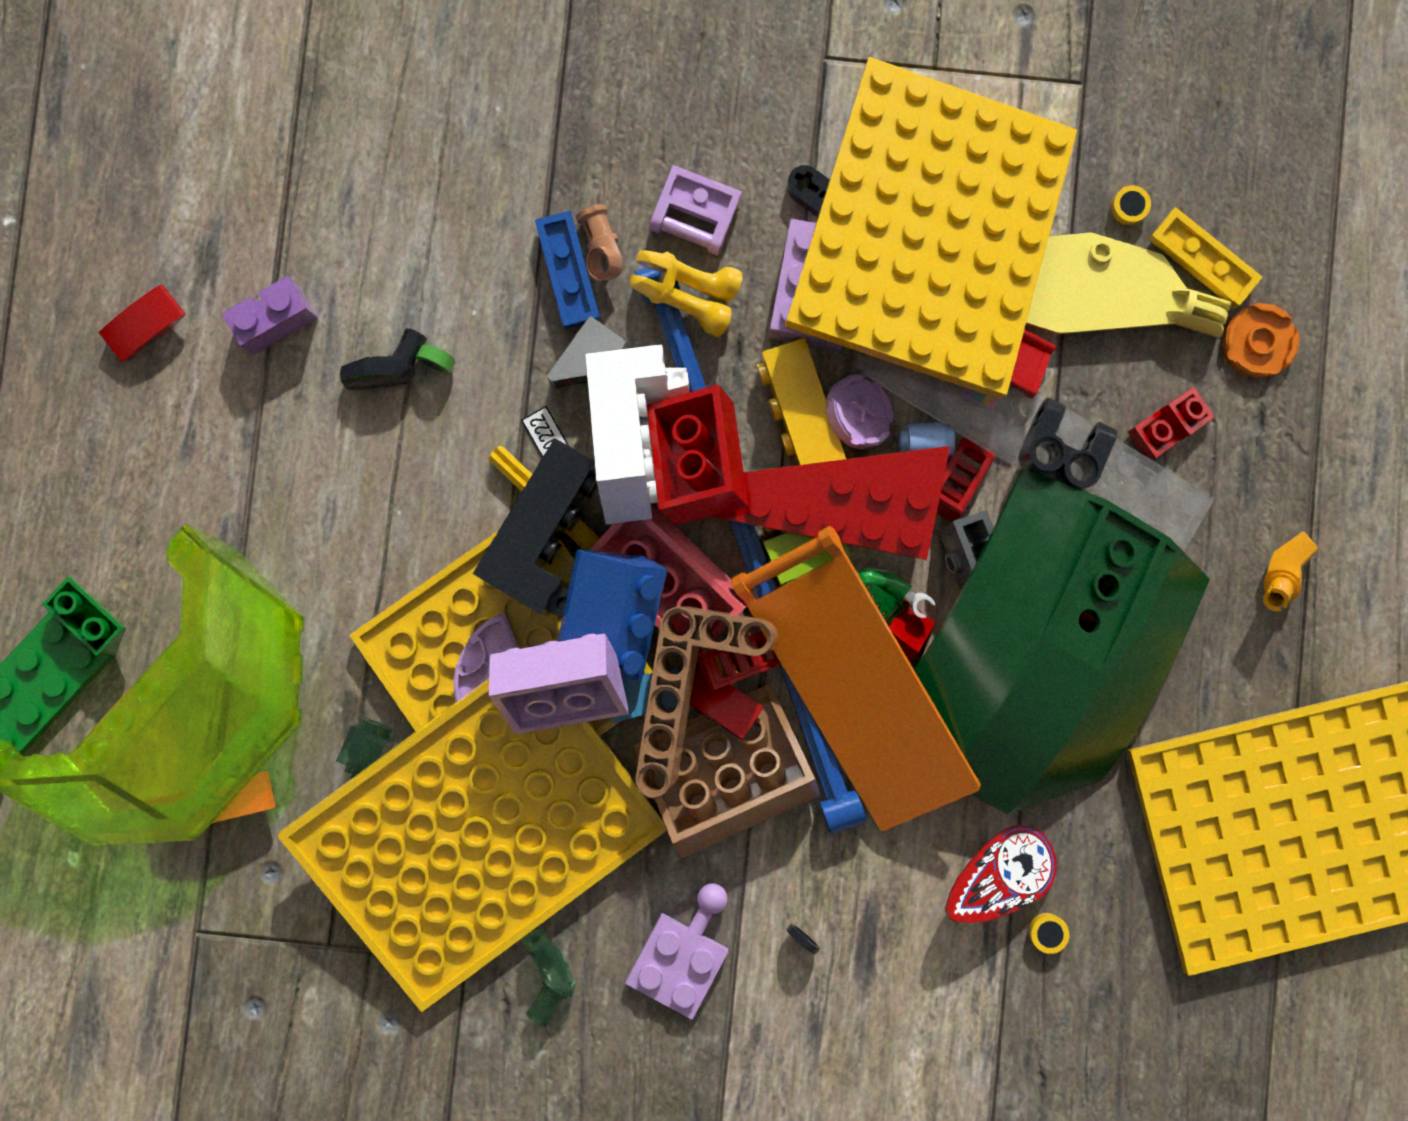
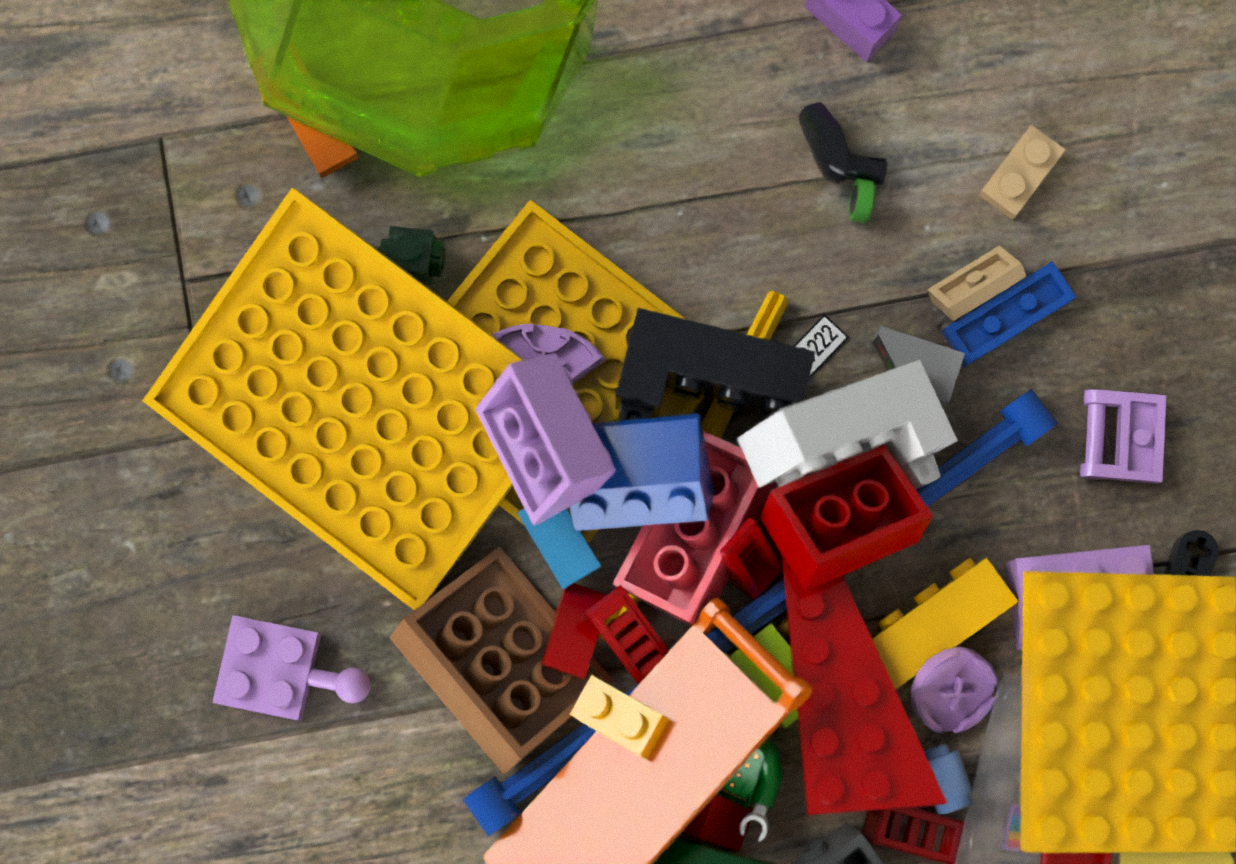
camera: 75 degrees right, 5 degrees down
(451, 220) = (1021, 172): none -> tan plate
(533, 287) = (976, 283): none -> tan plate
(555, 973) = (221, 535): clear green arm -> none
(601, 242) = (1051, 341): nougat connector -> none
(681, 684) = (584, 577): medium nougat beam -> none
(707, 543) = (750, 560): none -> red slope
(721, 286) = (1046, 489): yellow piece -> none
(803, 939) = (336, 802): black piece -> none
(804, 688) = (619, 717): none -> yellow plate

